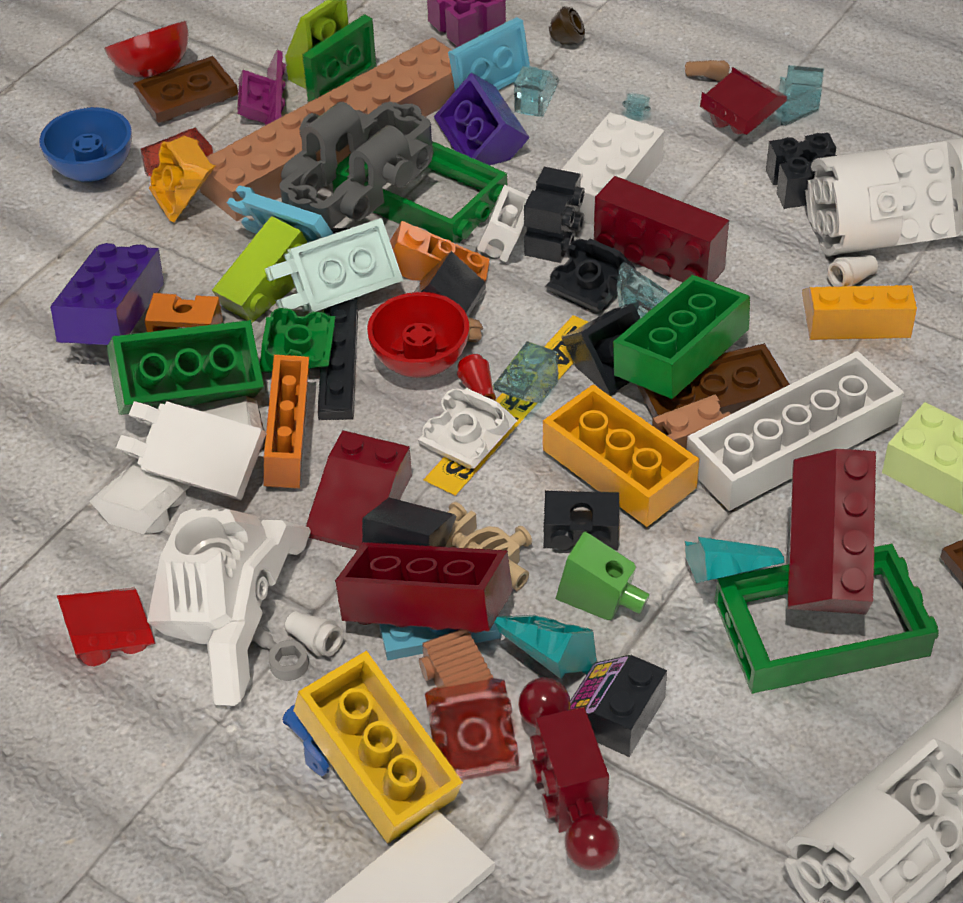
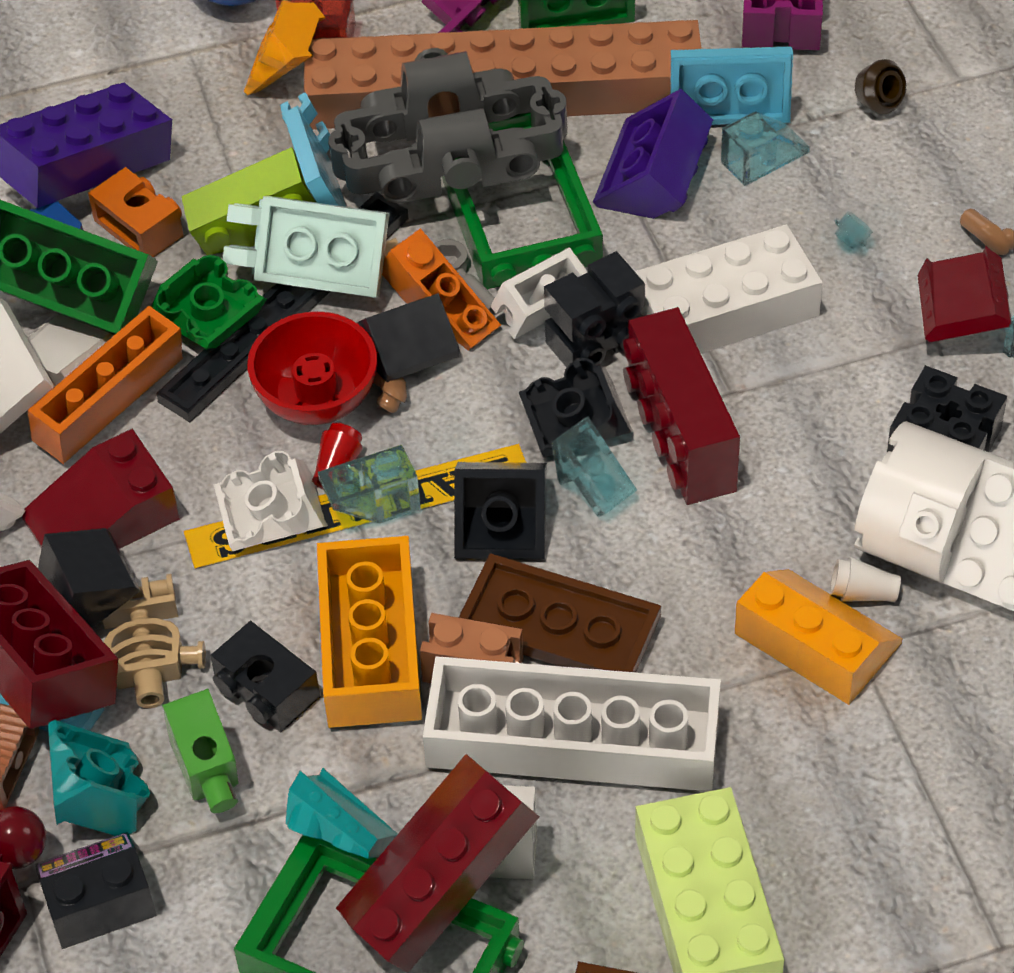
camera: 40 degrees right, 5 degrees up
(681, 336) = (559, 540): green brick -> none

